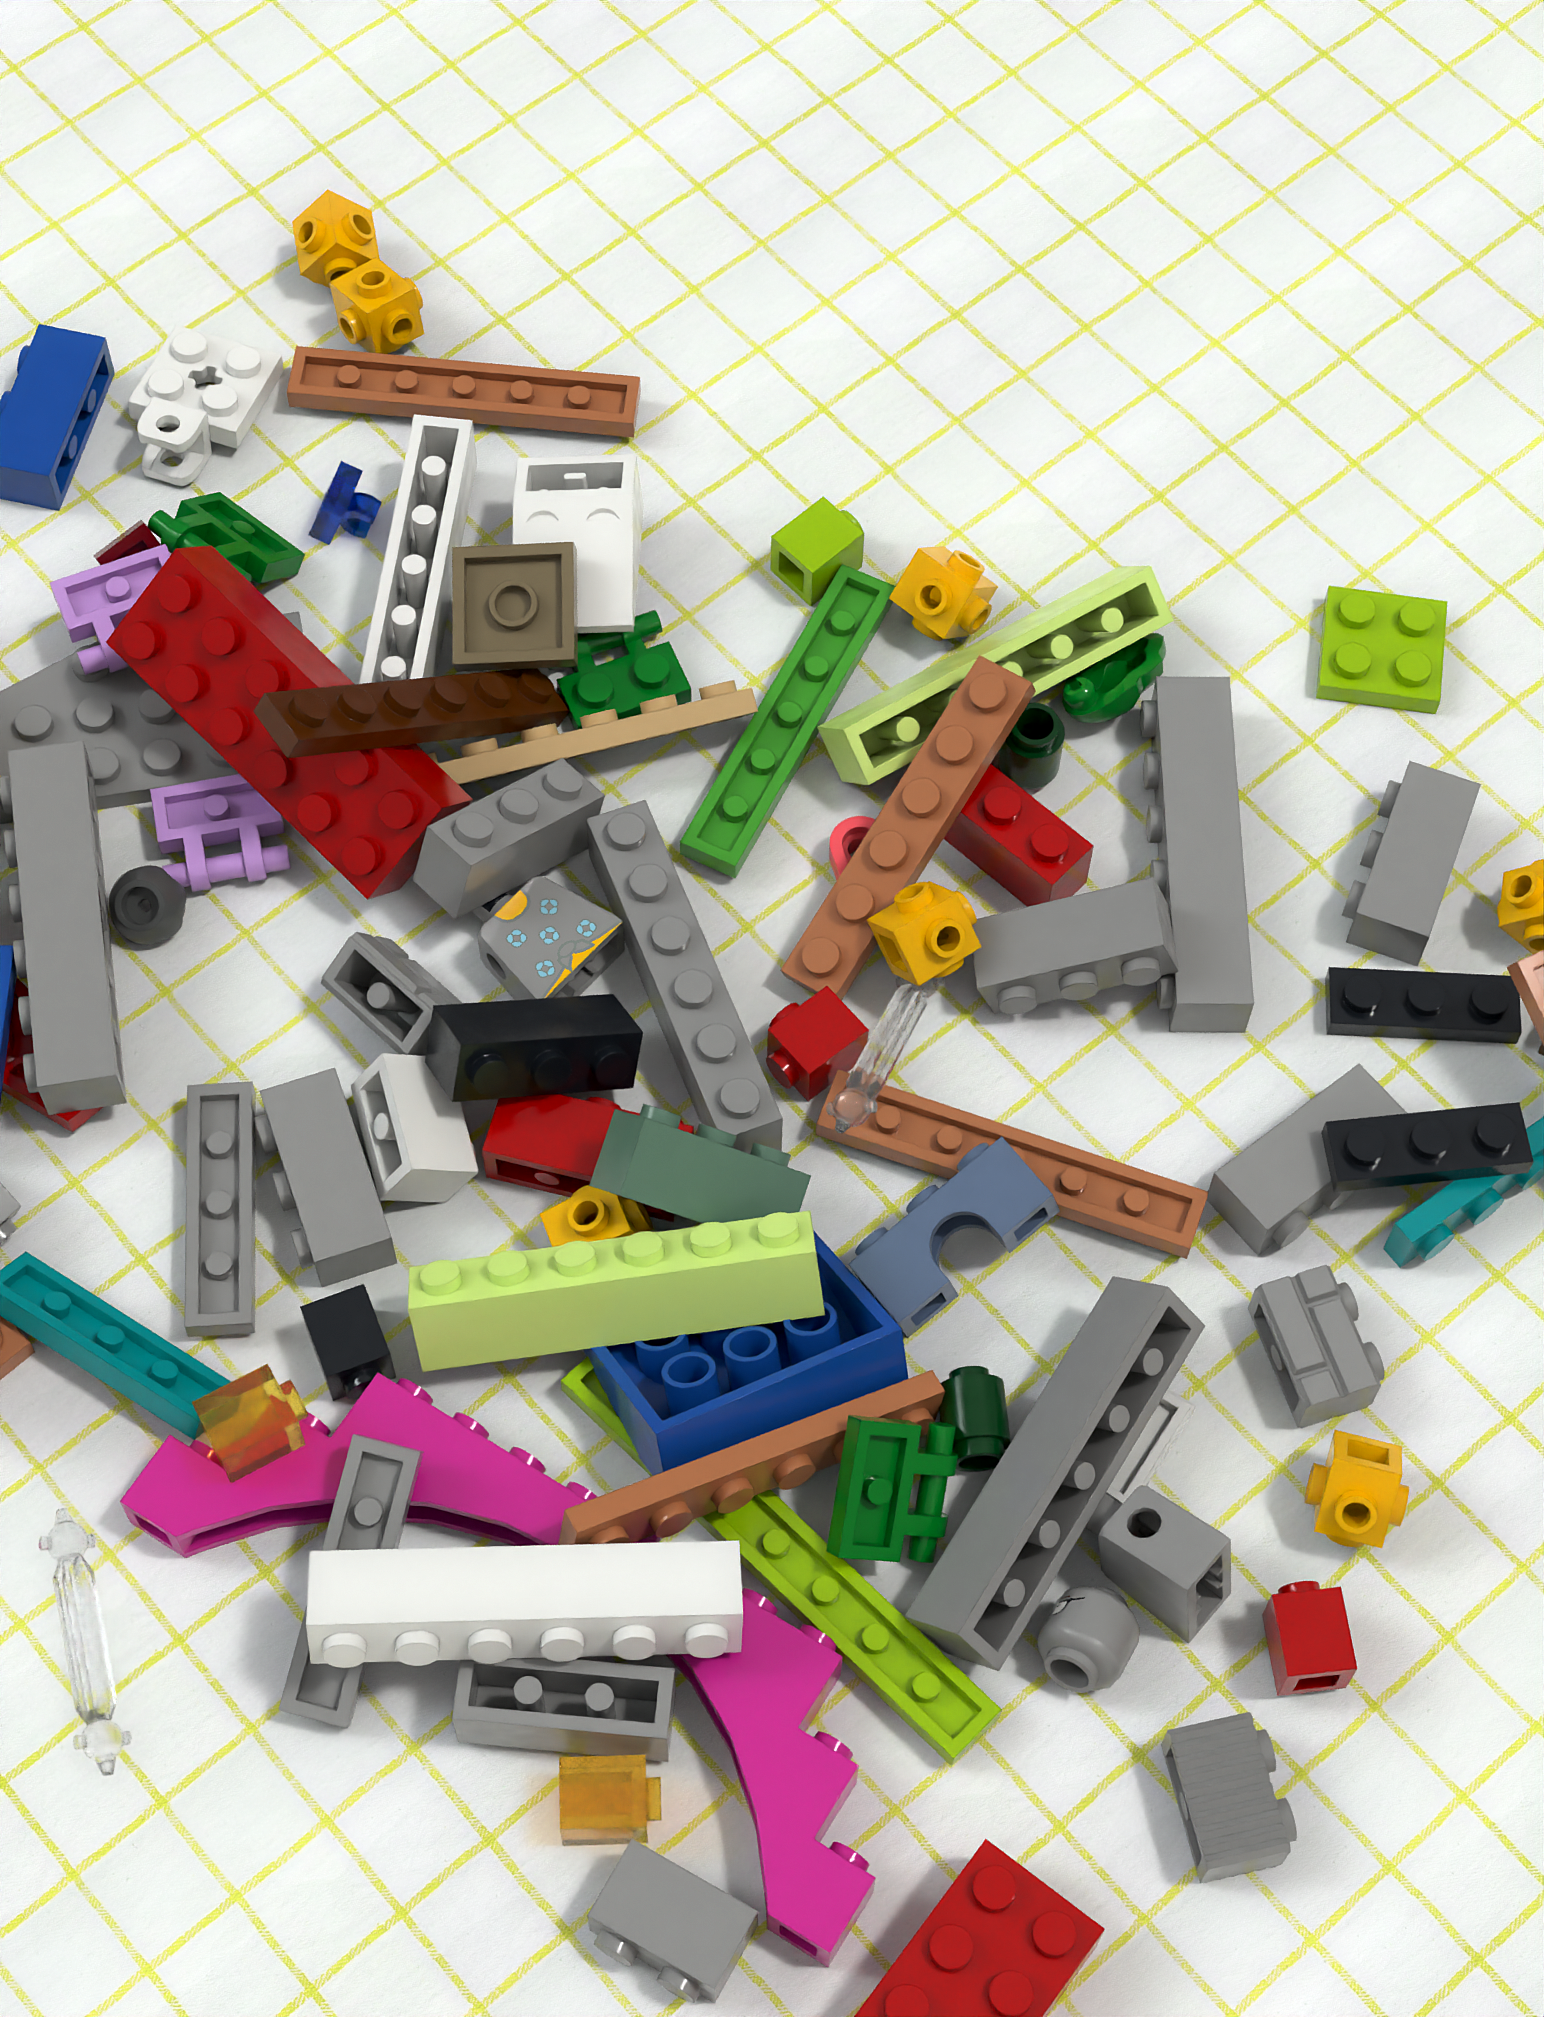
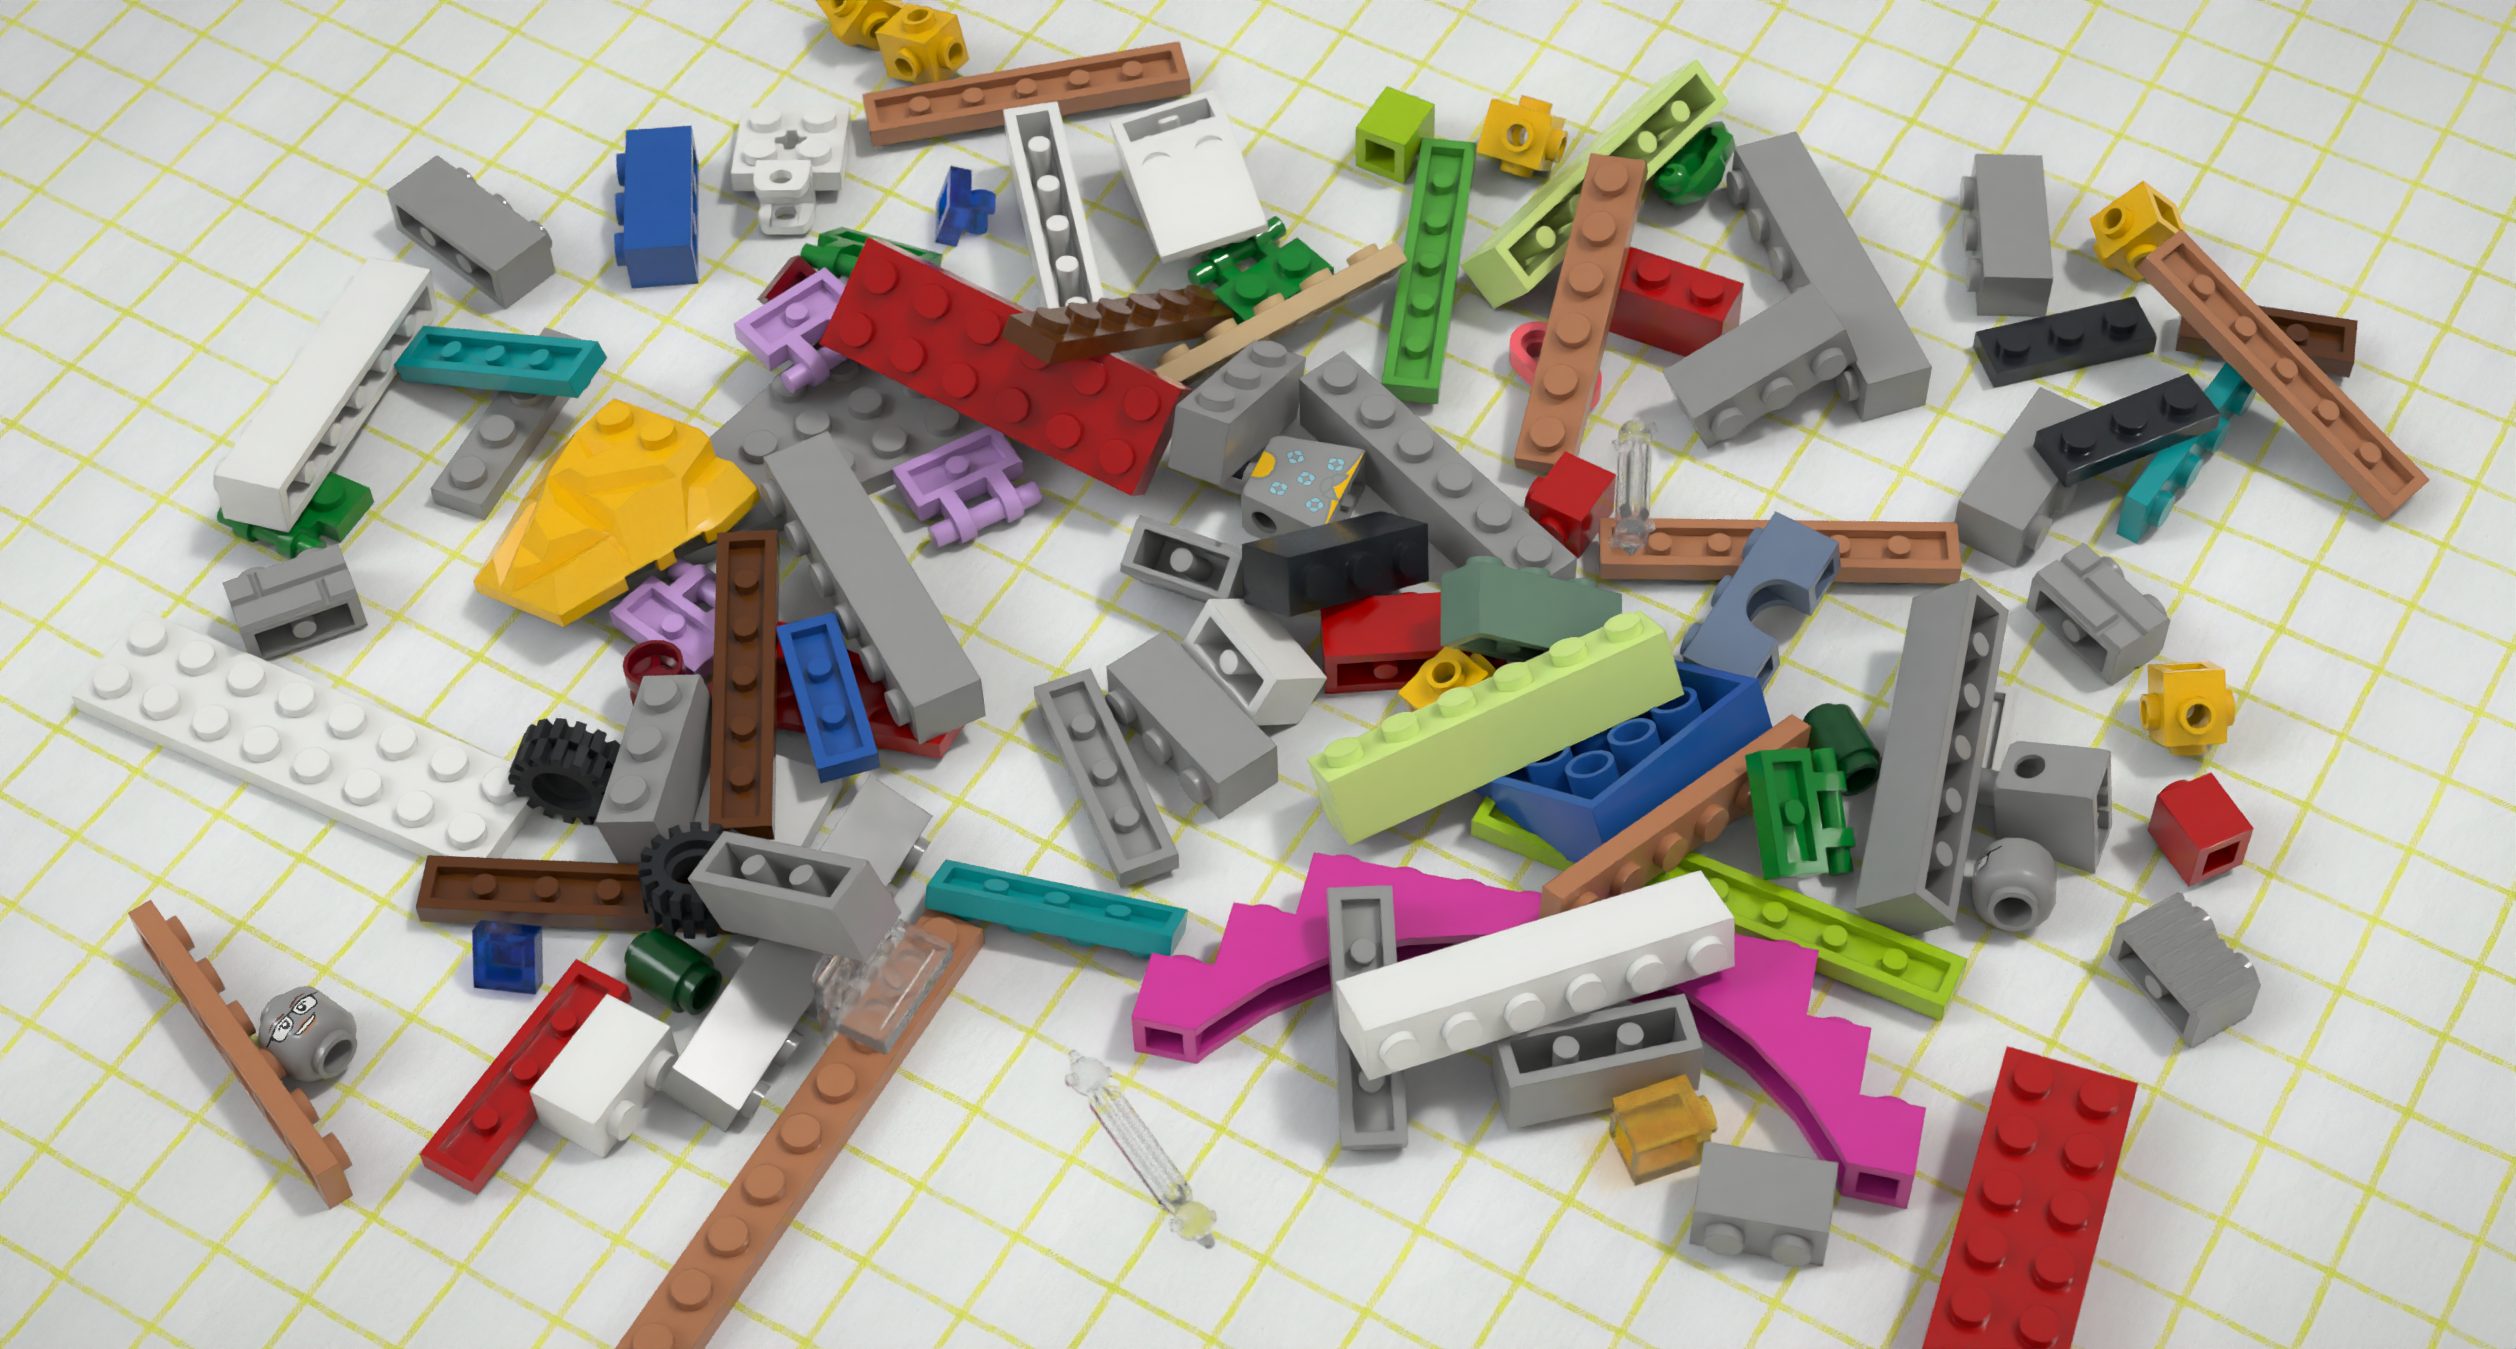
camera: 15 degrees left, 10 degrees down
(166, 901) = (949, 556): dark grey plate -> none
(252, 1421) = (1226, 913): clear yellow brick -> none
(347, 1341) = (1269, 845): black brick -> none
(514, 606) = (1161, 232): dark tan plate -> none
(925, 932) = (1631, 386): yellow brick -> none
(1033, 747) = (1657, 223): dark green brick -> none
(1382, 649) = (1906, 88): lime plate -> none

